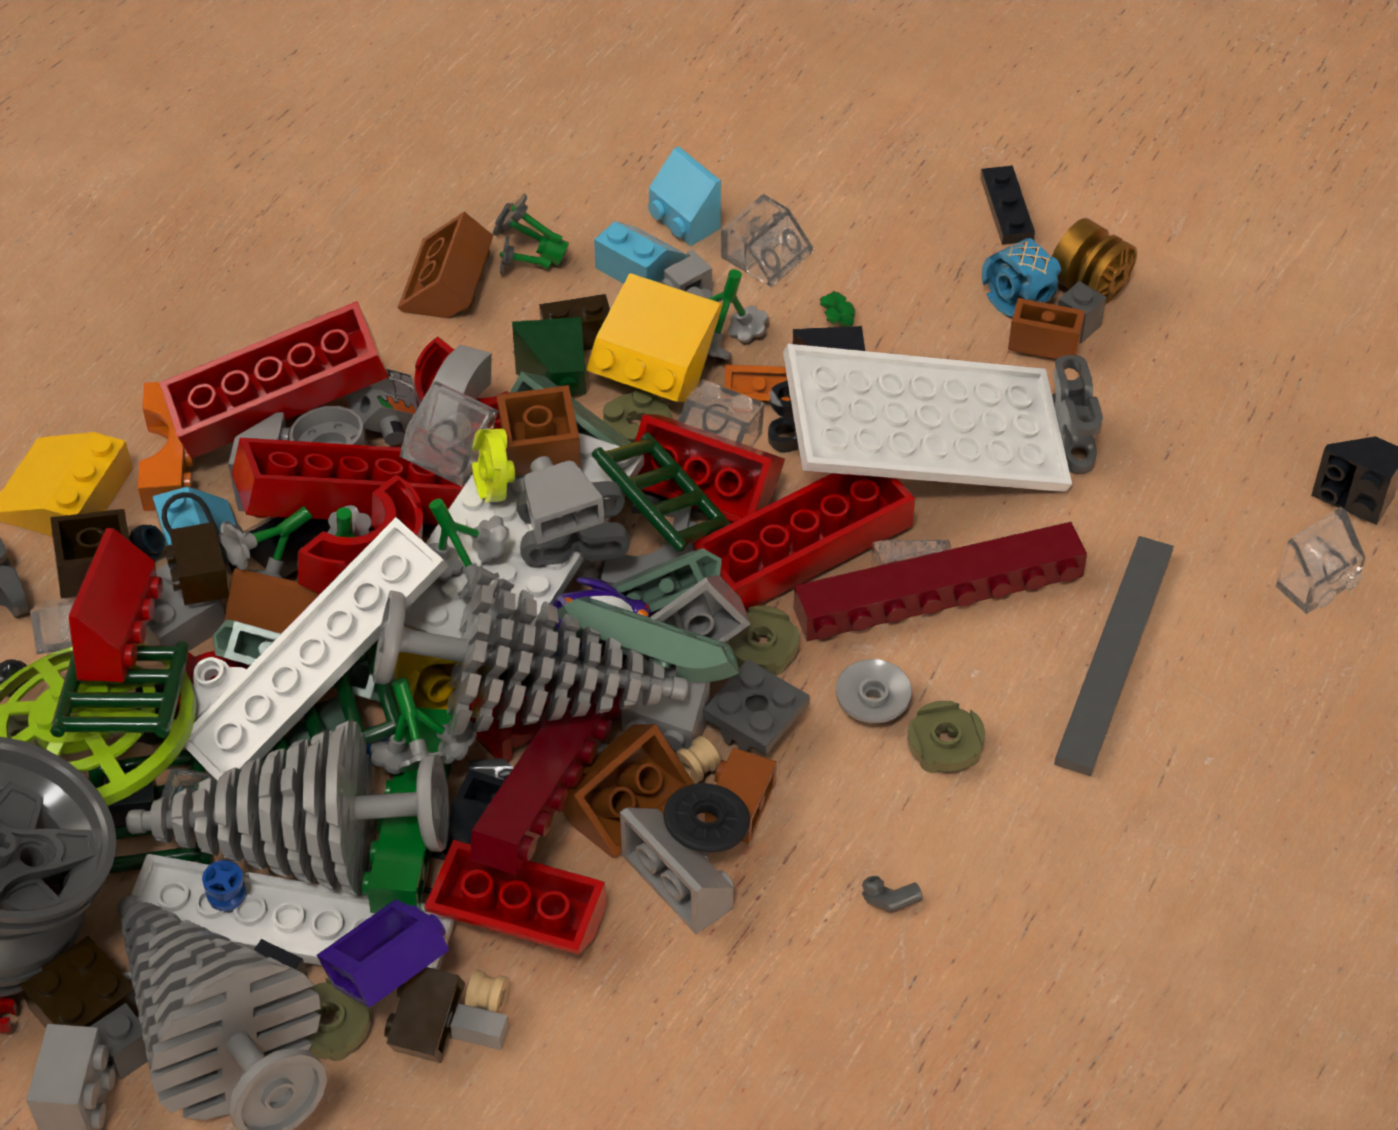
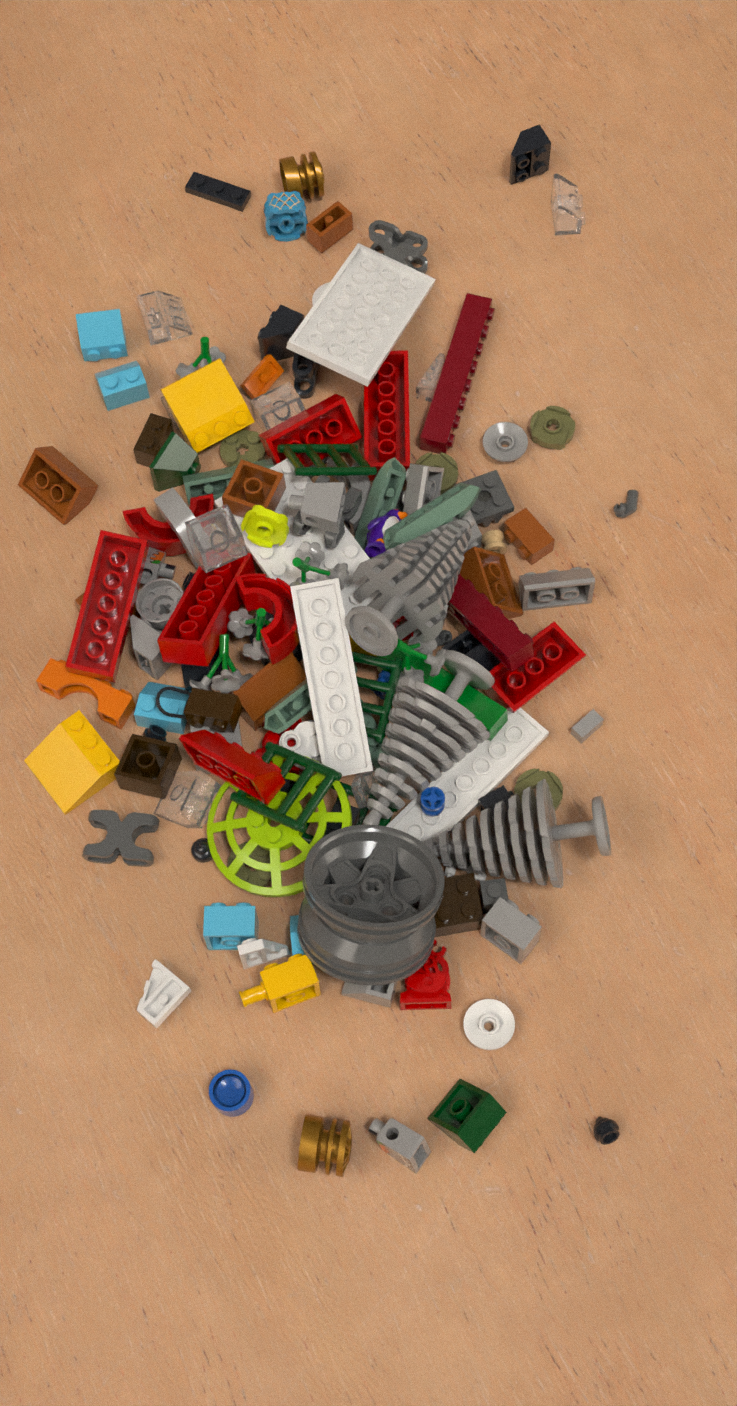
camera: 55 degrees left, 15 degrees up
(383, 952) = (541, 763): dark purple window -> none
(424, 1014) = (570, 745): dark brown brick -> none
(487, 992) = (572, 712): tan wheel -> none
(551, 245) = (81, 423): green plant -> none
(689, 273) = (159, 369): light grey brick -> none
(723, 834) = (539, 567): black wheel -> none
(838, 309) = (235, 312): green plant -> none
(1086, 299) = (323, 199): dark grey brick -> none
(1113, 656) = (551, 326): dark grey tile -> none

